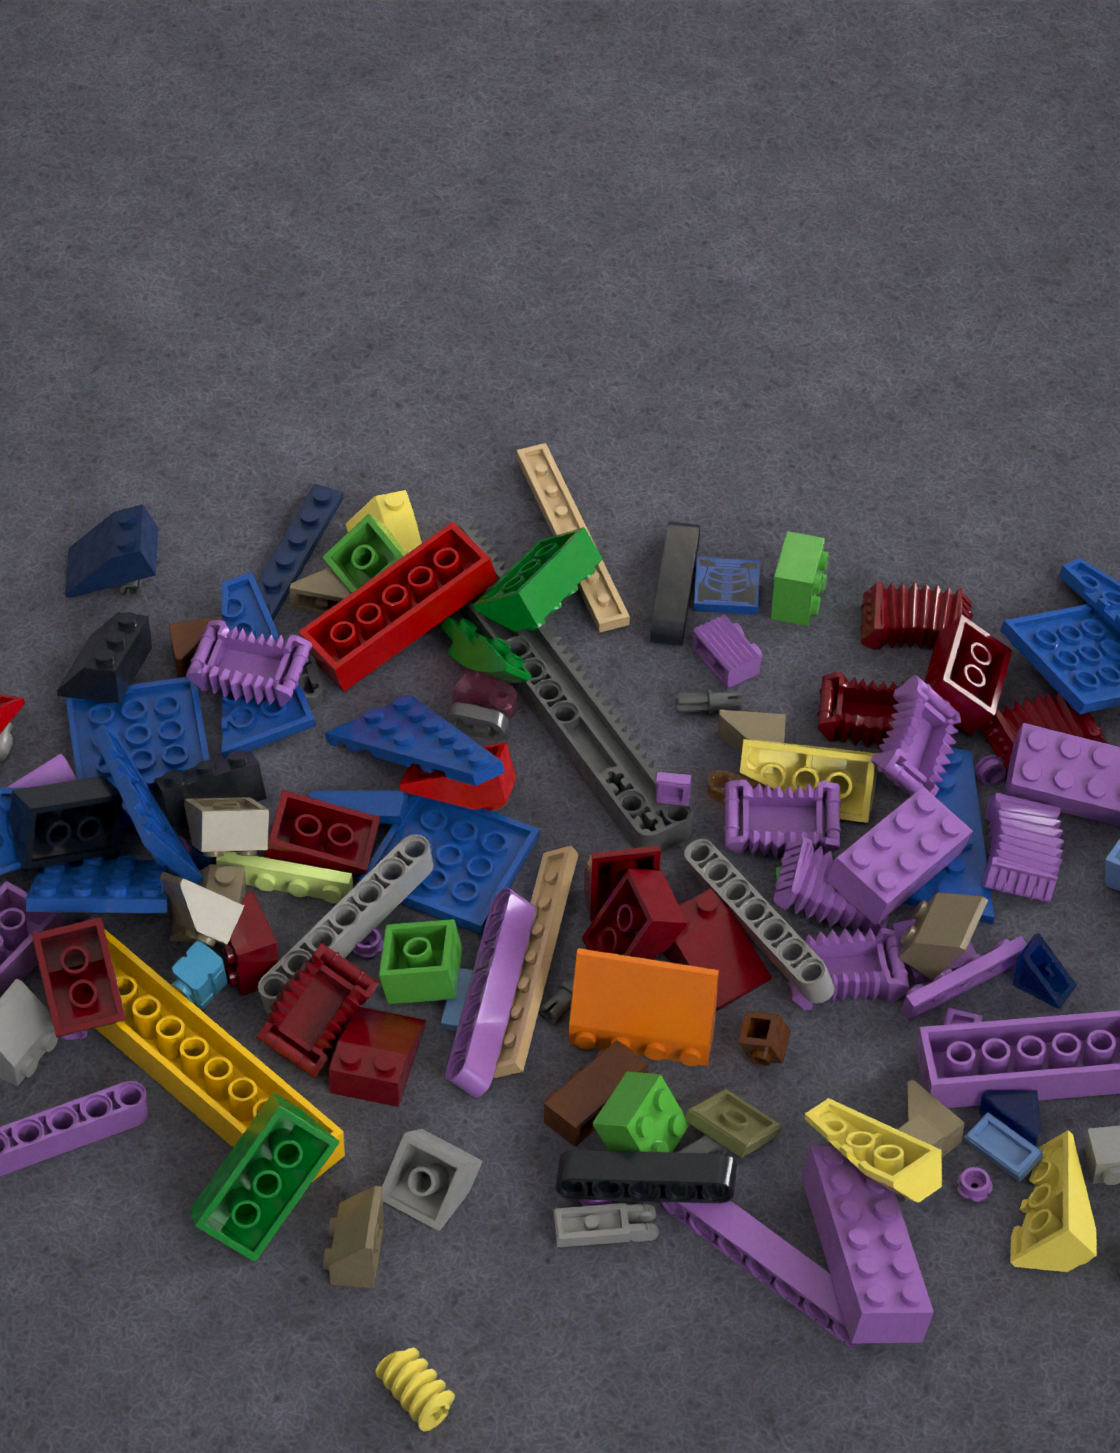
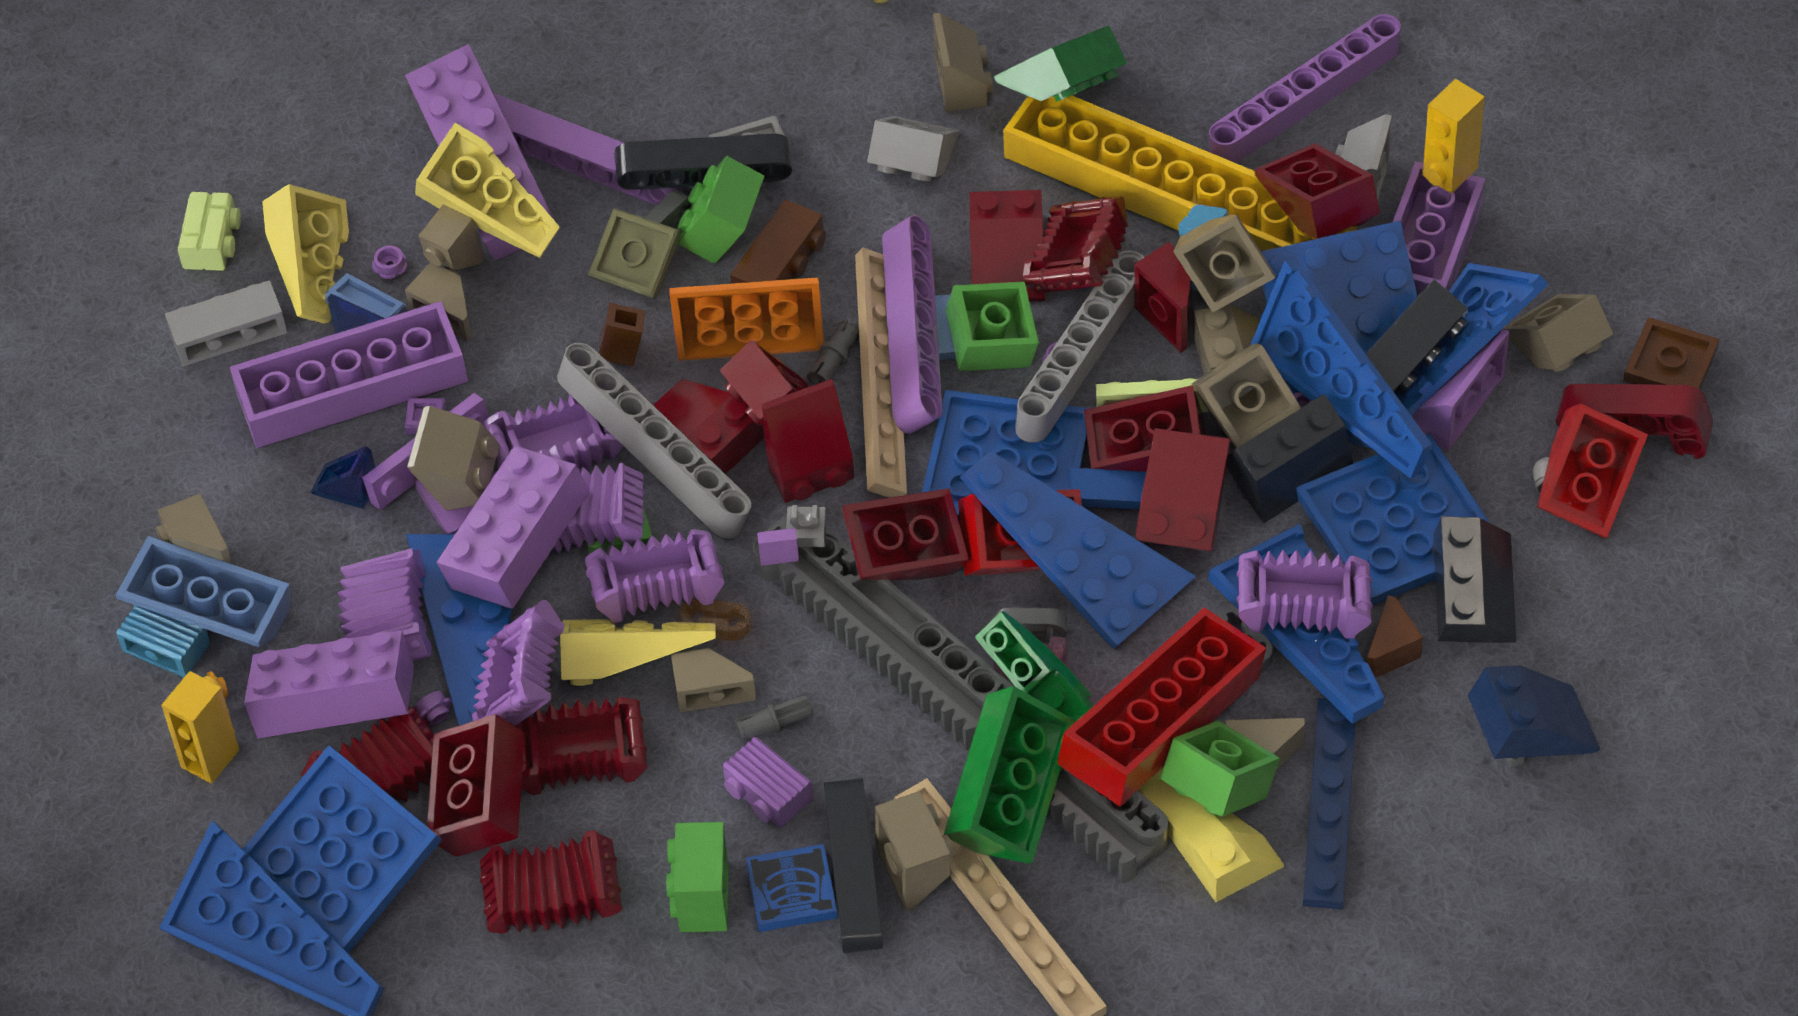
camera: 170 degrees right, 5 degrees up
(315, 765) = (1183, 490): none -> dark red slope
(559, 778) = (906, 536): none -> dark red slope
(628, 558) = (912, 847): none -> dark tan slope
(643, 811) = (809, 525): none -> light grey tile

